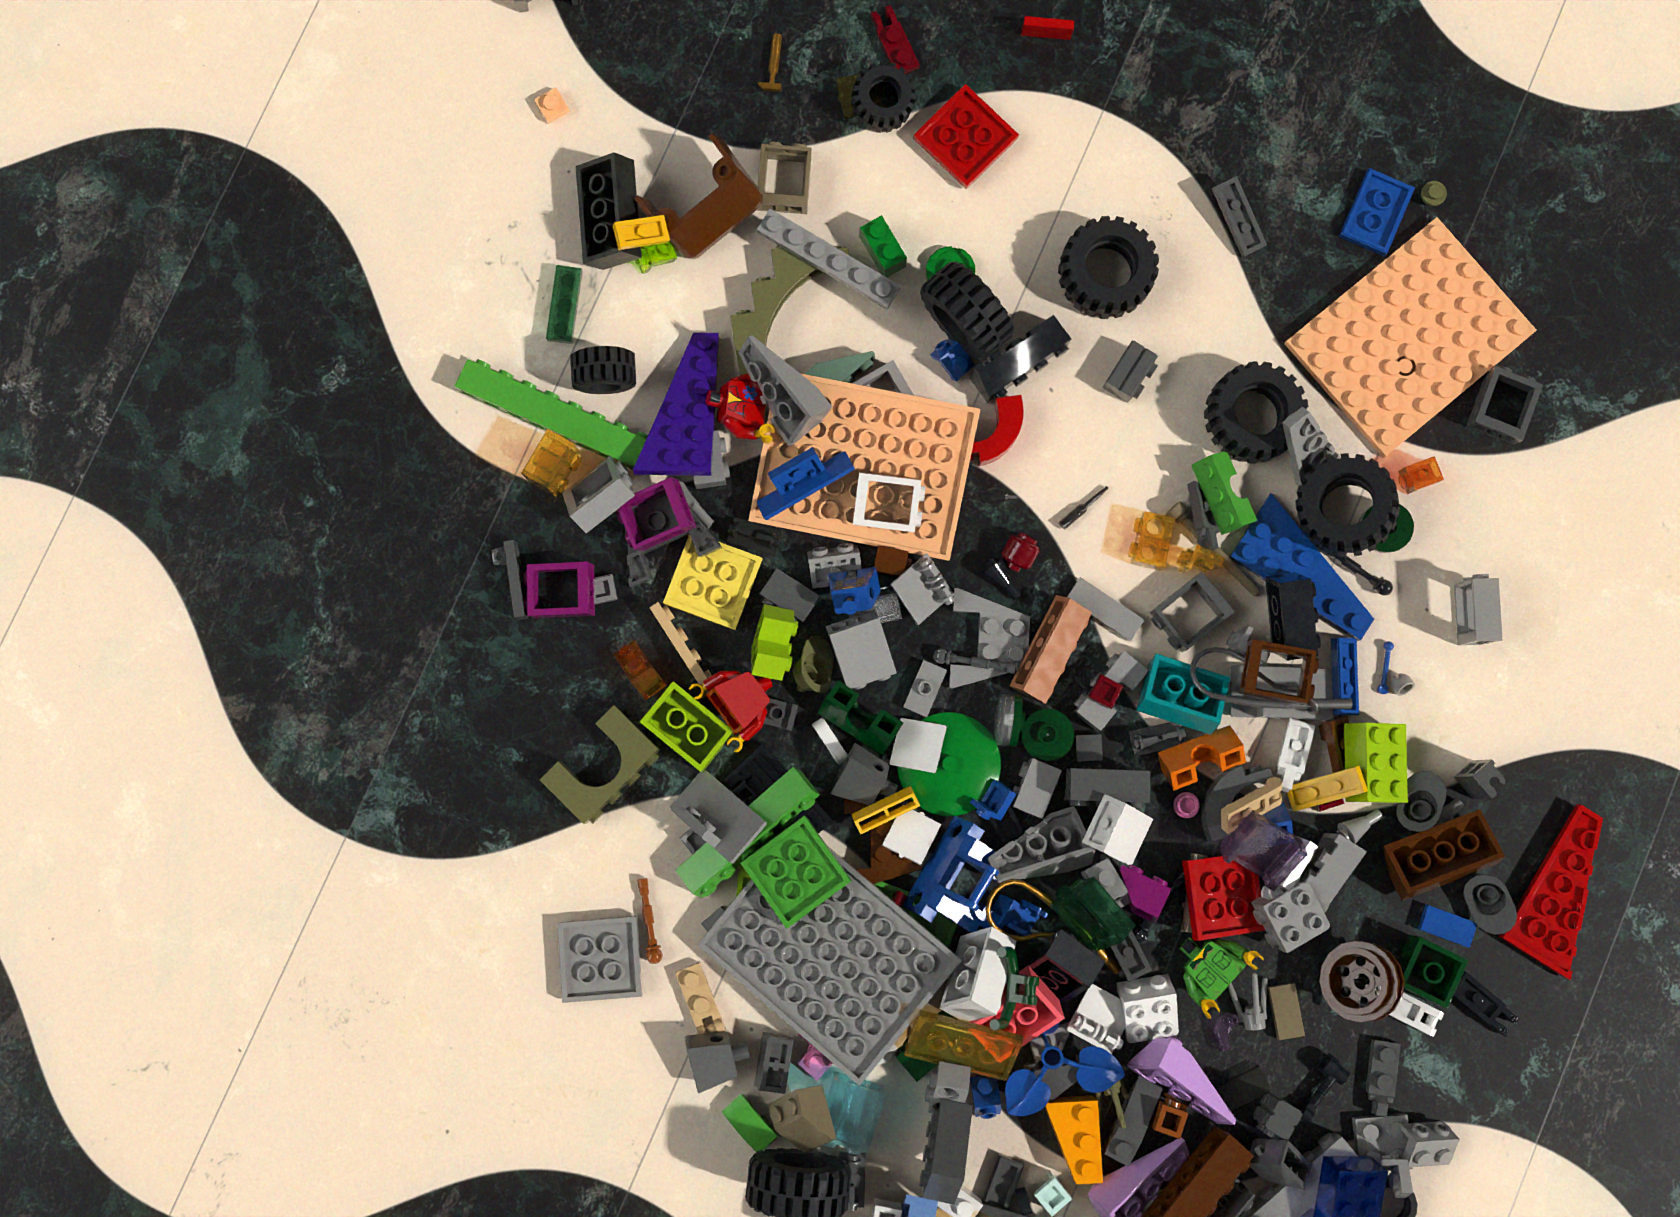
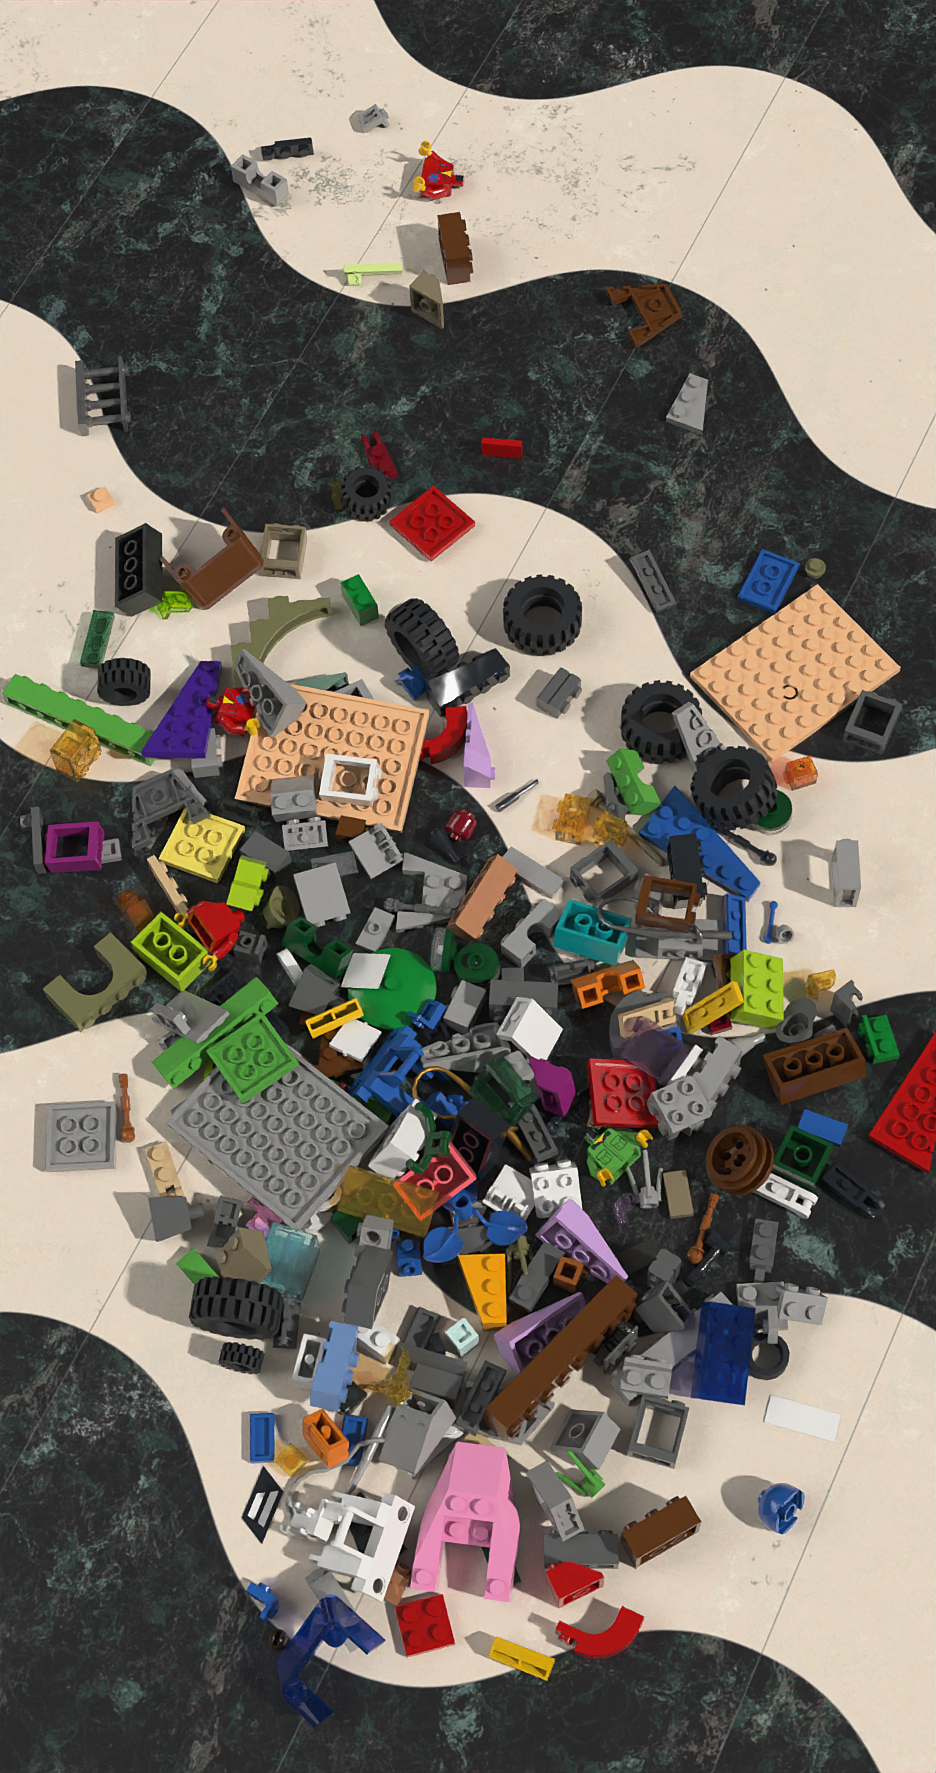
camera: 10 degrees right, 20 degrees down
(598, 494) = (112, 771): light grey window -> none
(641, 232) = (162, 578): yellow plate -> none
(678, 503) = (150, 773): magenta window -> none
(773, 65) = (280, 473): pearl gold piece -> none
(802, 478) = (279, 759): blue bracket -> none
(821, 522) = (294, 798): none -> light grey slope
(828, 259) = (313, 604): light grey plate -> none
(854, 590) = (318, 846): blue torso -> none
(1036, 461) = (477, 759): none -> lavender wedge
(1105, 691) = (525, 928): dark red tile -> none
(1186, 805) = (595, 1025): bright pink plate -> none
(1307, 1084) = (695, 1253): none -> dark orange piece
(1447, 746) = (821, 981): none -> clear yellow bracket
(1490, 904) = (855, 1104): dark grey piece -> none
(1511, 815) = (878, 1038): none -> green bracket

